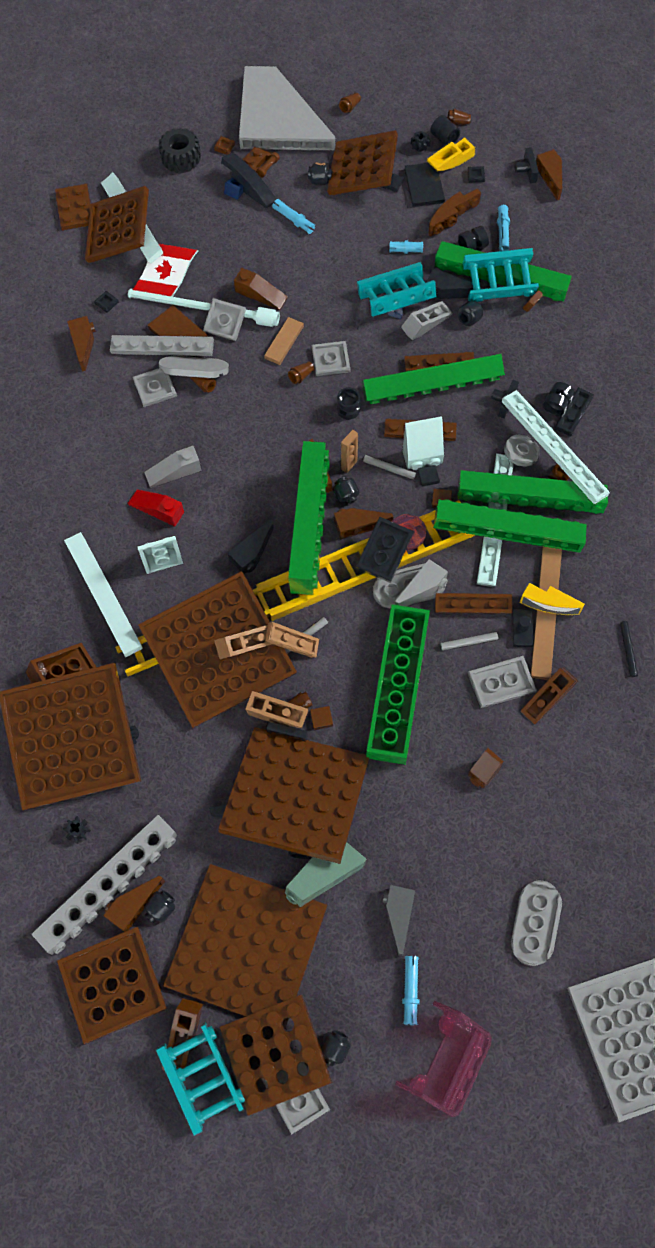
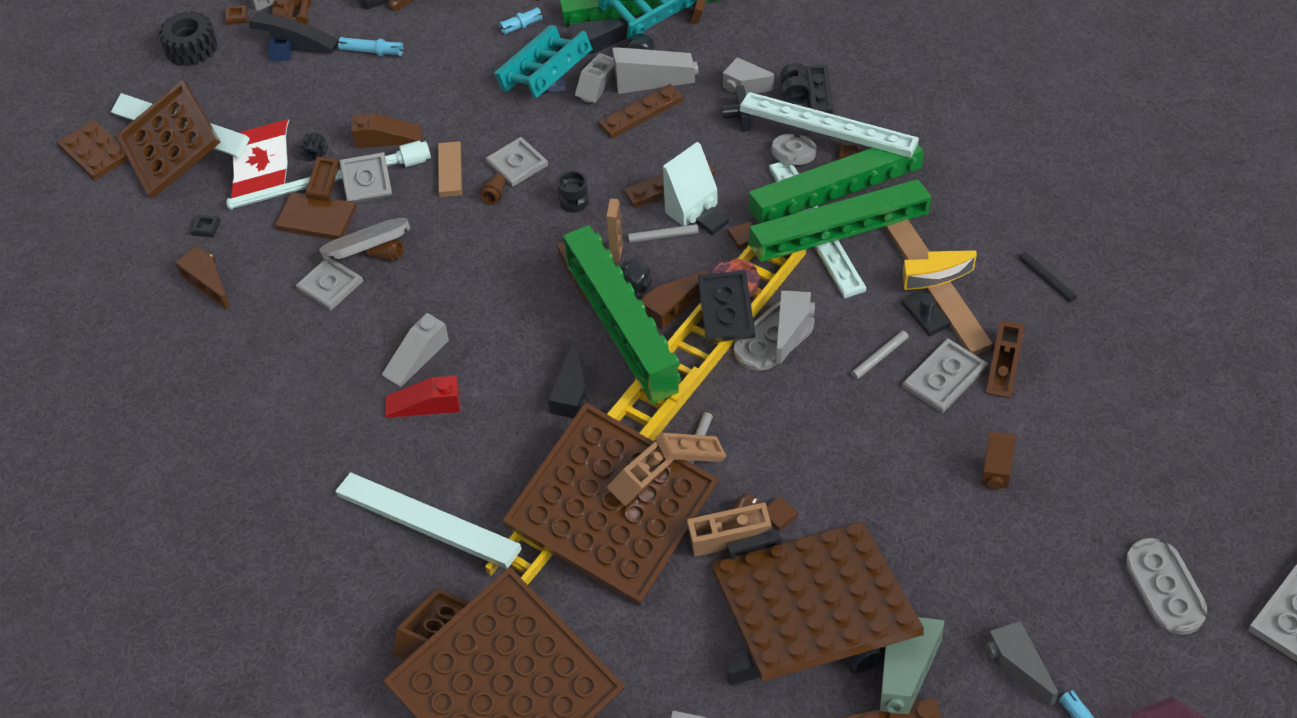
camera: 30 degrees left, 15 degrees down
(160, 554) = (470, 440): light aqua slope -> none
(162, 345) = (308, 236): light grey plate -> none
(195, 306) = (322, 178): none -> reddish brown tile
(206, 277) = (313, 146): none -> black gear
(398, 685) = (841, 433): green brick -> none
(433, 377) = (647, 125): green brick -> none
(465, 334) = (651, 69): none -> light grey slope
(473, 603) = (856, 315): reddish brown plate -> none
(528, 375) = (747, 74): none -> light grey slope

